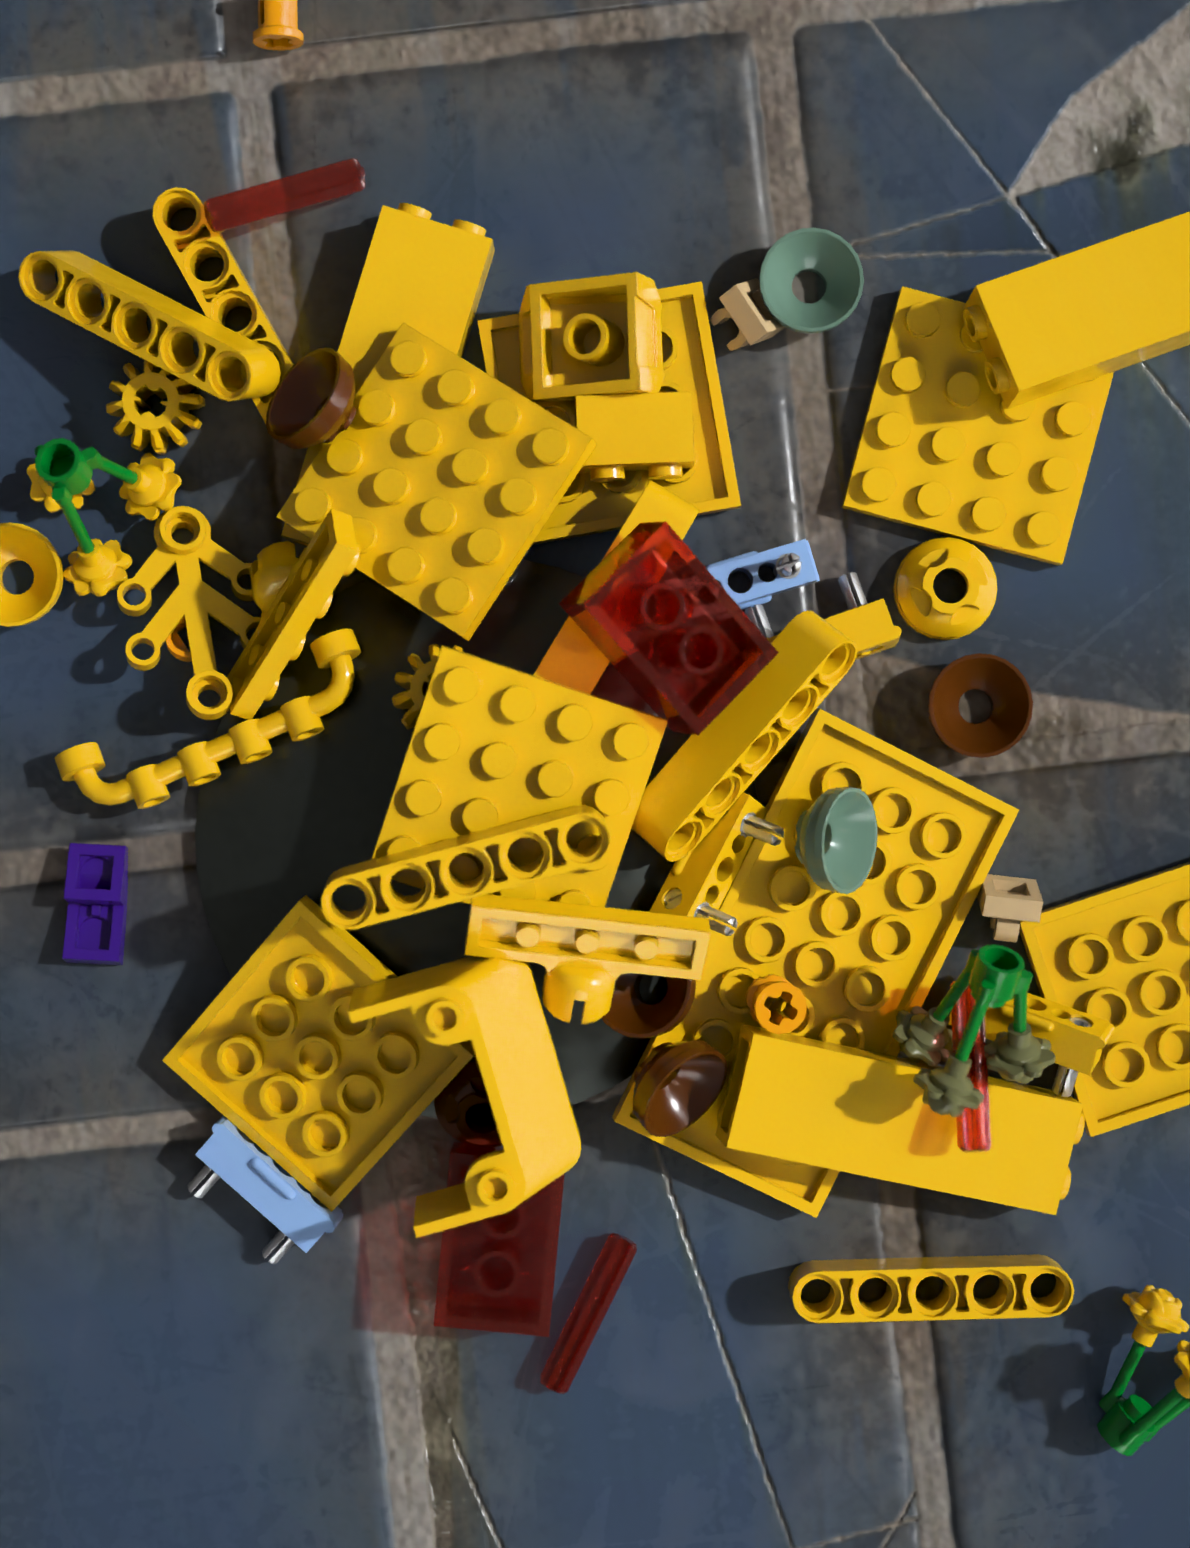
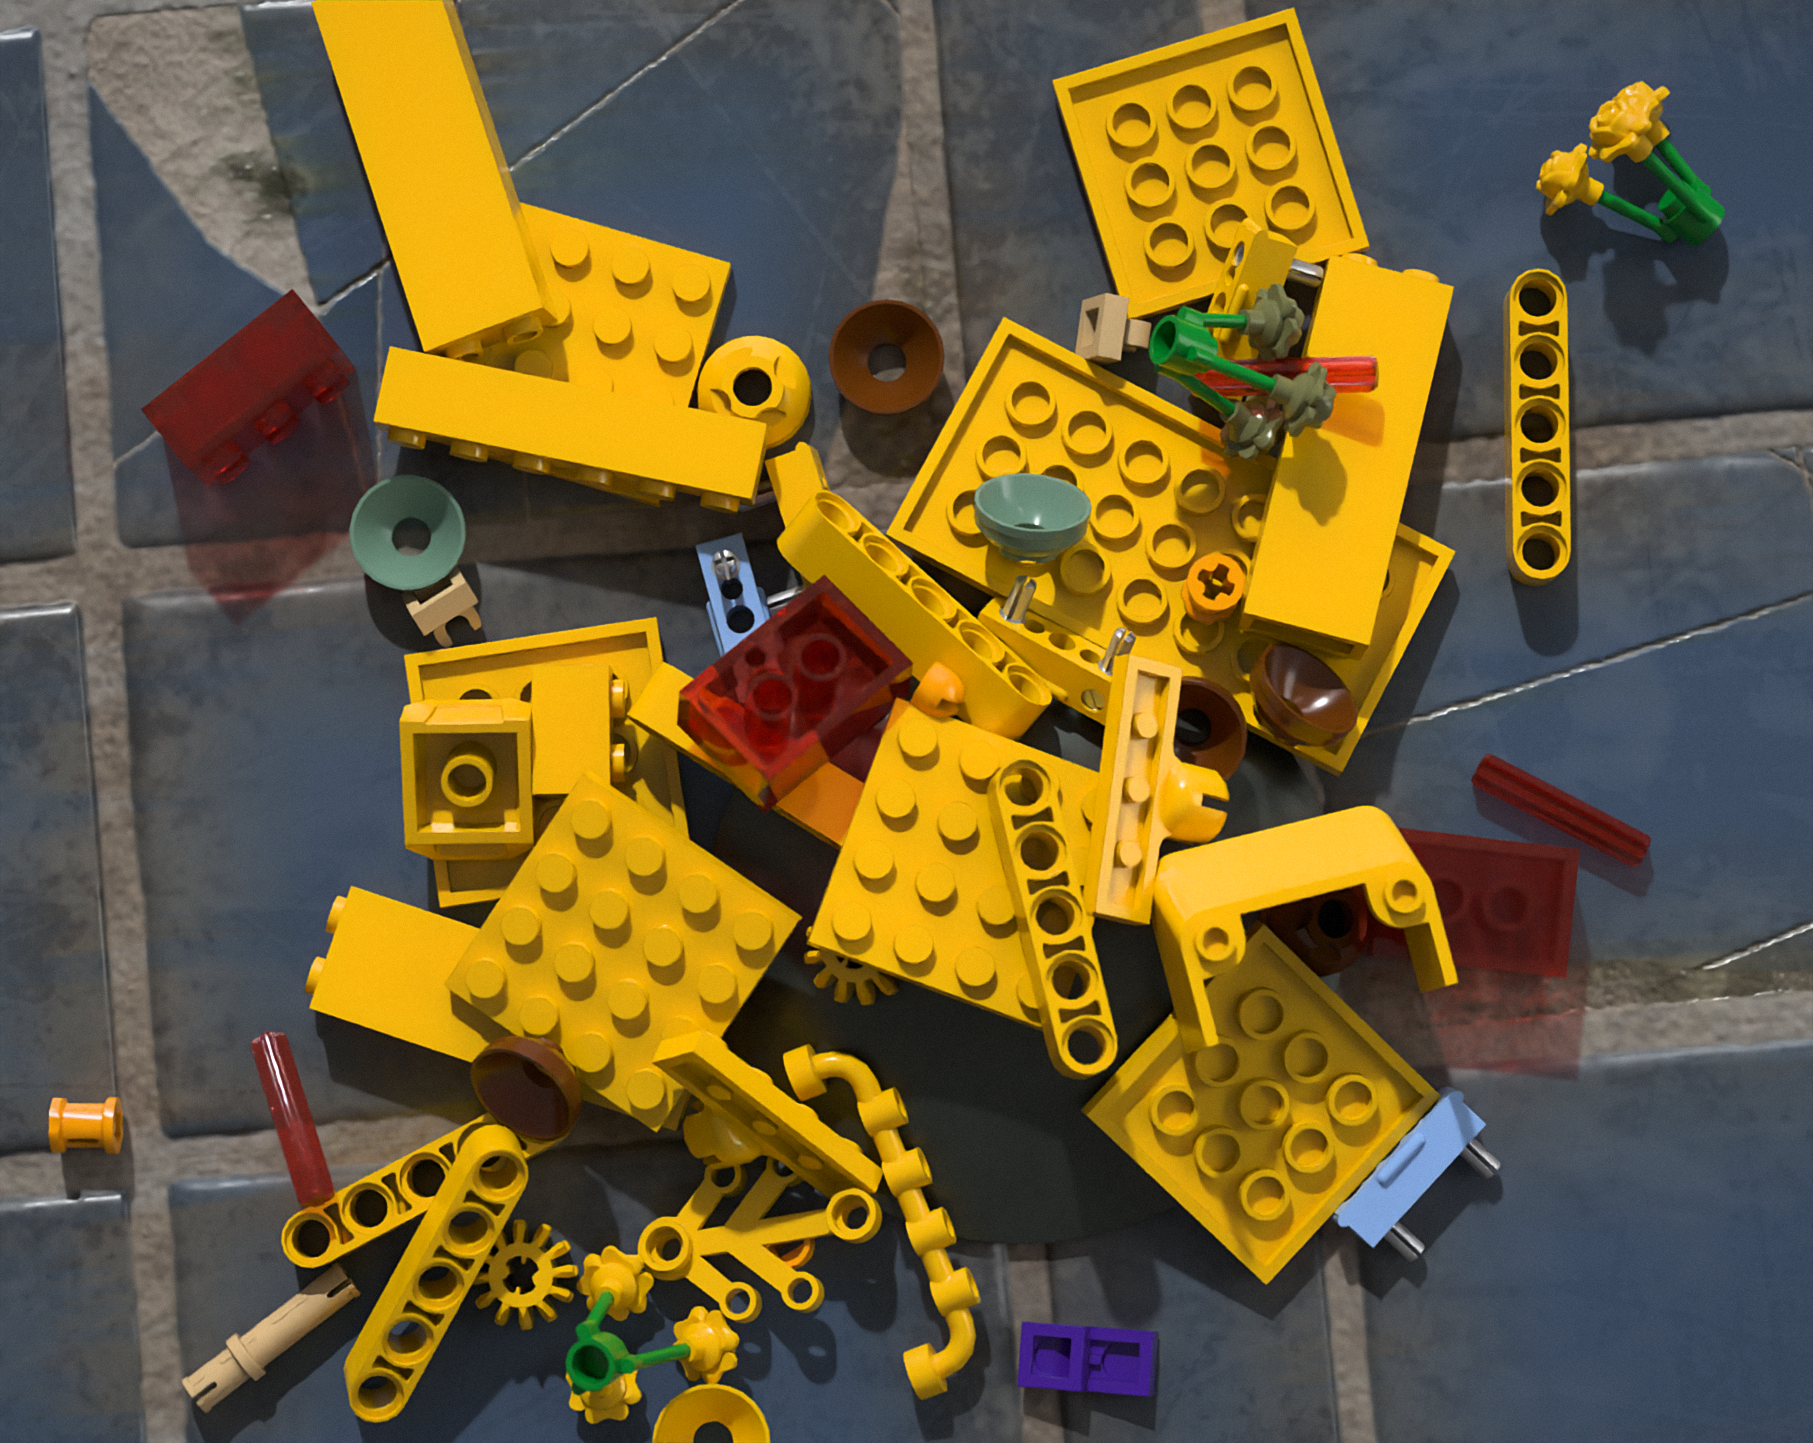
camera: 85 degrees left, 5 degrees down
(80, 165) = (270, 1338): none -> tan pin
(673, 760) = (939, 692): none -> light orange hinge
(909, 421) = (571, 428): none -> yellow brick
(936, 131) = (250, 390): none -> clear red brick

